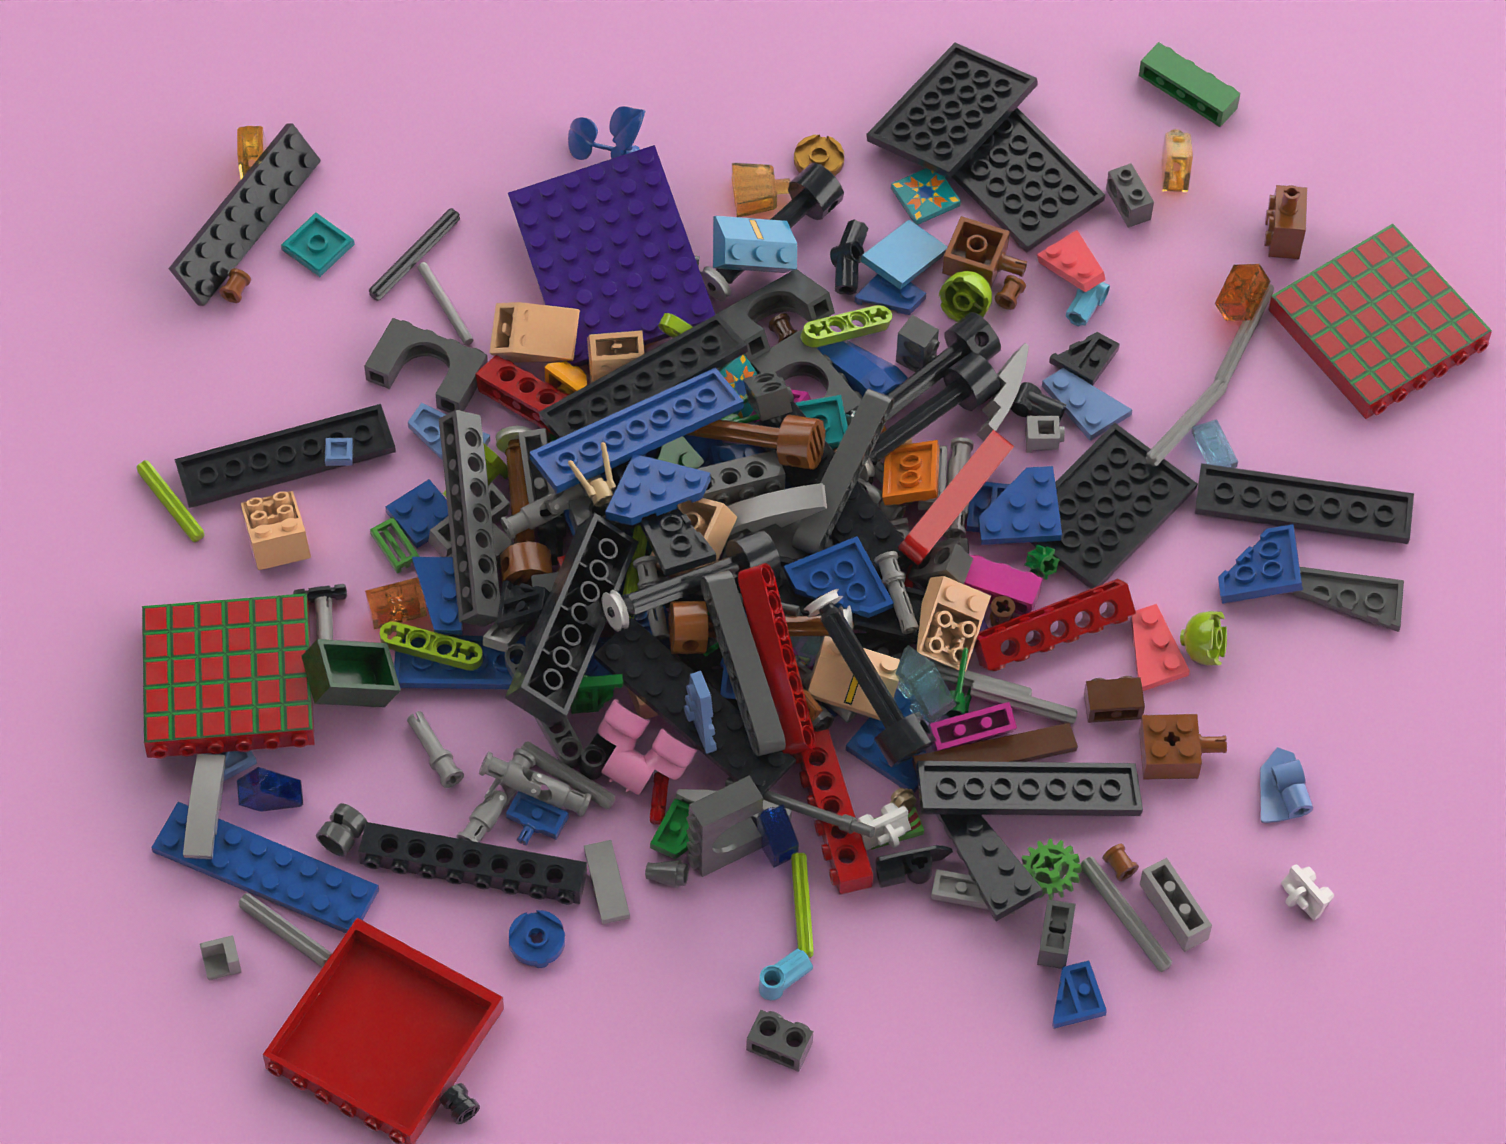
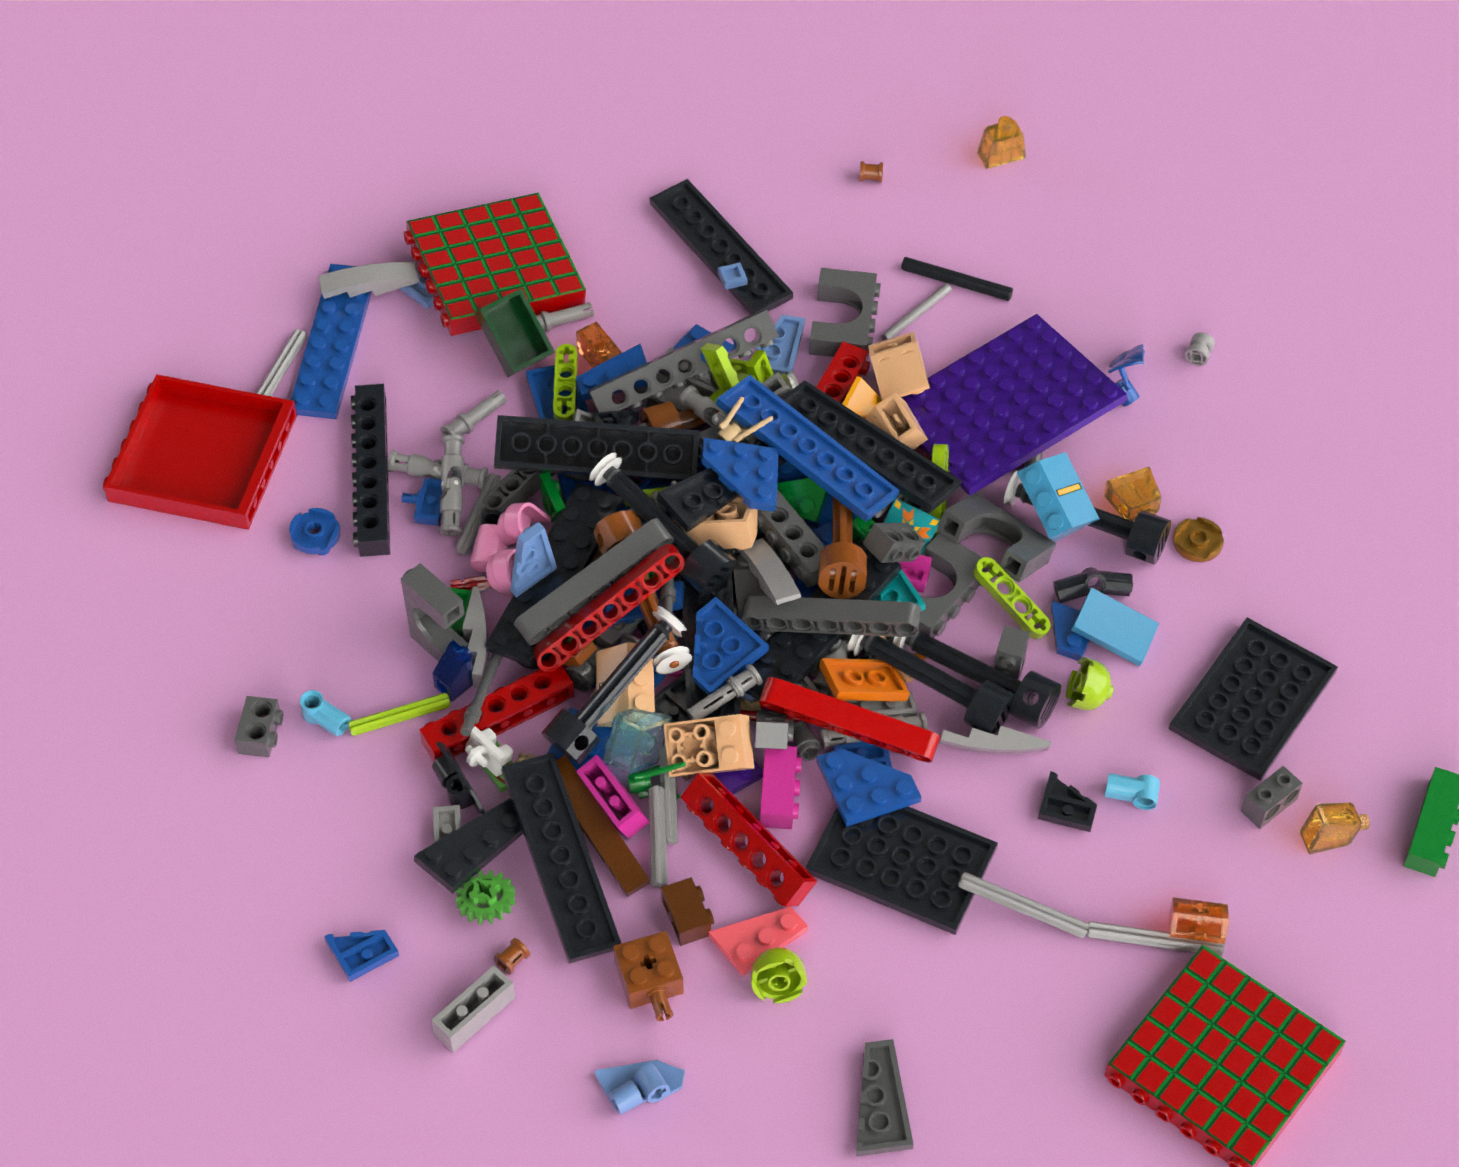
camera: 75 degrees right, 5 degrees down
(170, 501) = (650, 190): lime axle -> none
(220, 957) = (244, 335): light grey panel -> none
(244, 214) = (939, 154): black plate -> none
(269, 790) = (400, 321): clear blue slope -> none
(275, 530) = (645, 259): light nougat slope -> none
(317, 244) = (938, 215): teal tile -> none
(338, 591) = (598, 306): black axle -> none
(339, 833) = (374, 372): dark grey wheel -> none
(405, 561) = (665, 343): bright green tile -> none
(459, 1103) = (147, 517): black wheel -> none
(507, 482) = (721, 369): none -> lime bracket
(590, 74) = (1200, 349): none -> light grey wheel
(606, 882) = (383, 567): light grey tile -> none
(669, 873) = (398, 609): dark grey cone -> none
(781, 326) = (995, 551): reddish brown bush -> none
(863, 368) = (975, 625): blue wedge -> none
(925, 195) = (1196, 632): tile -> none
(952, 110) = (1296, 623): black plate -> none
(980, 250) = (1141, 683): dark orange brick -> none
(999, 610) = (749, 795): reddish brown bush -> none
(1010, 292) = (1112, 723): dark orange bush -> none
(1032, 402) = (993, 771): black piece -> none
(1042, 561) = (815, 815): green gear -> none
(1043, 433) = (961, 785): light grey brick -> none
(1056, 934) = (414, 914): dark grey brick -> none
(1073, 262) = (1167, 763): coral wing -> none
(1086, 405) = (1014, 817): medium blue wing -> none
(1126, 914) = (460, 975): light grey axle -> none
(1214, 444) = (1011, 941): clear light blue plate -> none
(1265, 568) = (882, 1012): blue plate -> none
(1286, 221) = (1300, 939): dark orange brick -> none
(1304, 503) = (973, 1037): black plate -> none
(1304, 892) = (535, 1118): white hips -> none

